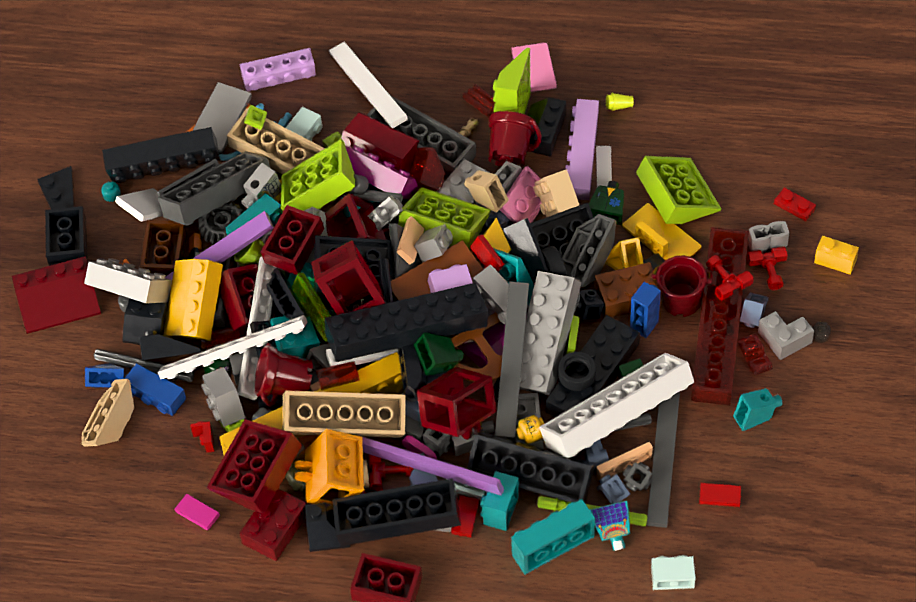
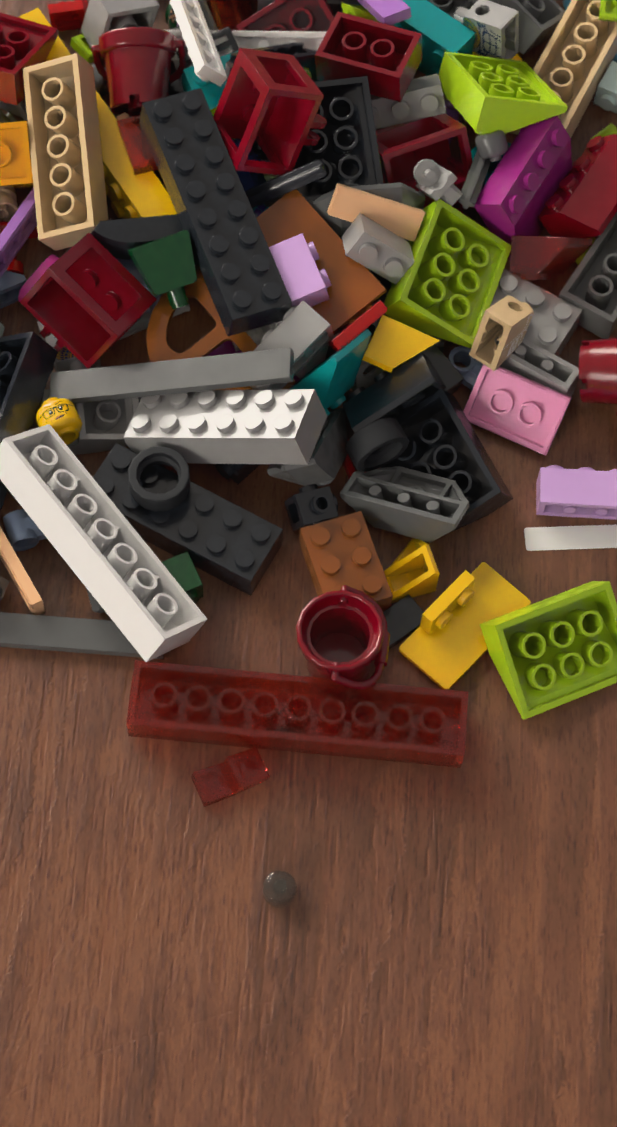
camera: 80 degrees right, 10 degrees up
(556, 193) = (510, 439): tan brick -> none
(572, 337) = (231, 479): lime tile -> none
(608, 201) = (522, 537): dark green torso -> none
(645, 309) = (288, 583): blue brick -> none
(730, 281) = (345, 718): red bar -> none
(753, 309) = (319, 773): sand blue slope -> none
(755, 408) = (106, 759): teal torso -> none
(768, 236) = (461, 788): light grey brick -> none
(768, 261) = (424, 800): red bar -> none
(785, 338) = (256, 822): light grey brick -> none
(794, 204) = (553, 850): red plate -> none
(836, 255) = (438, 916): yellow brick -> none

